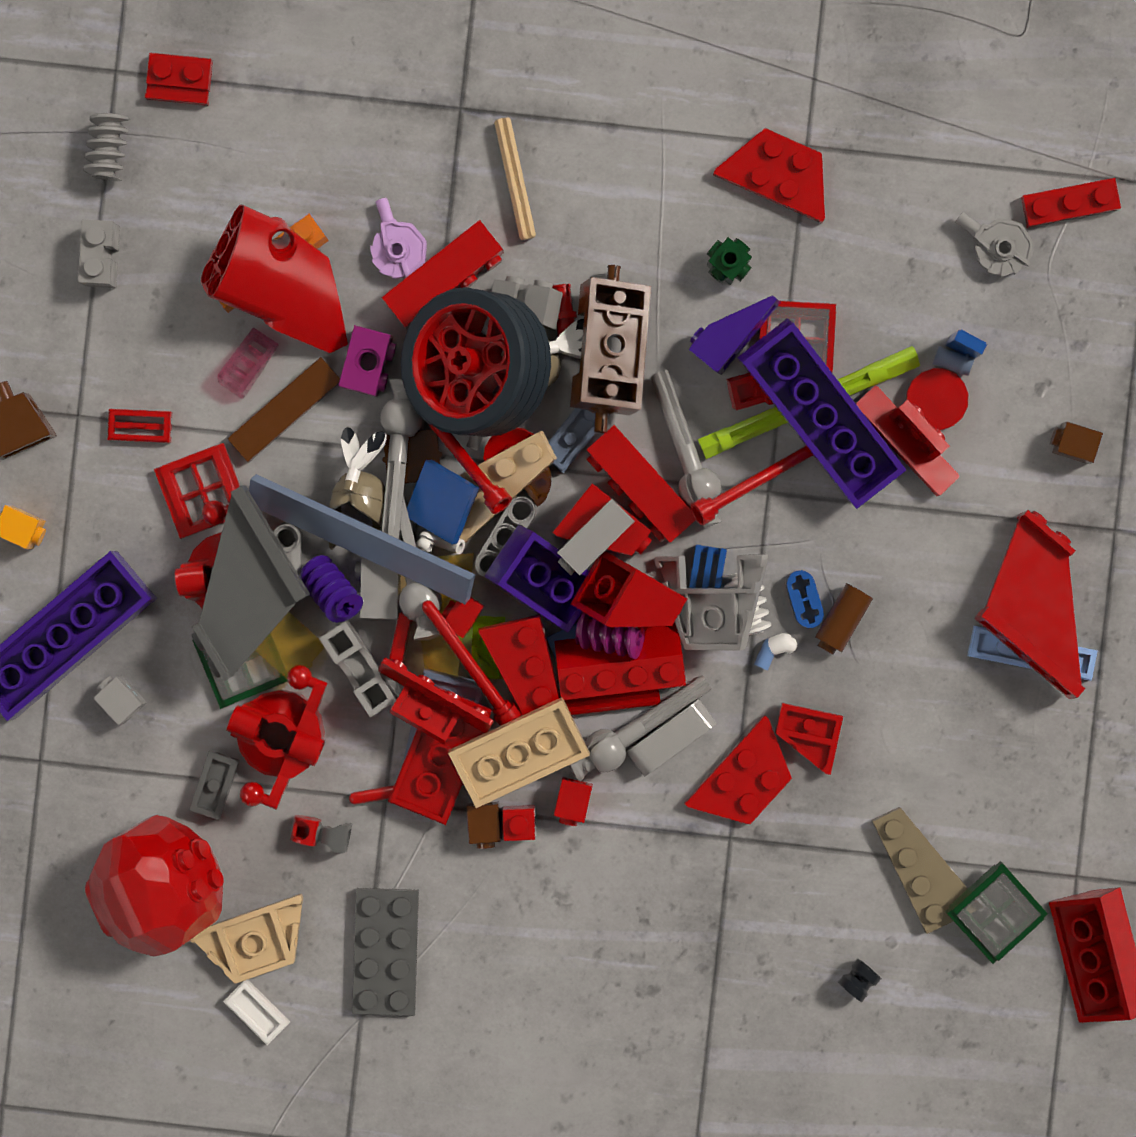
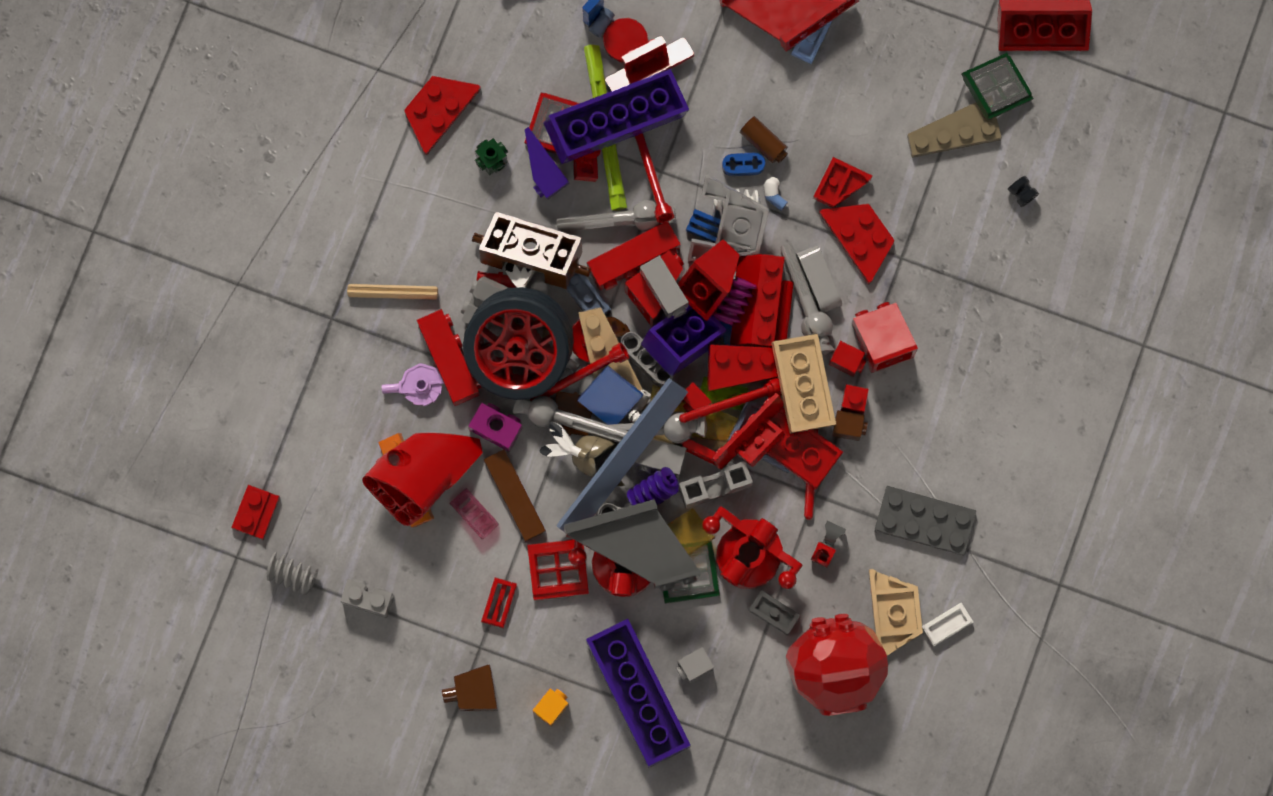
camera: 85 degrees left, 10 degrees down
(614, 842) = (884, 336): none -> slope

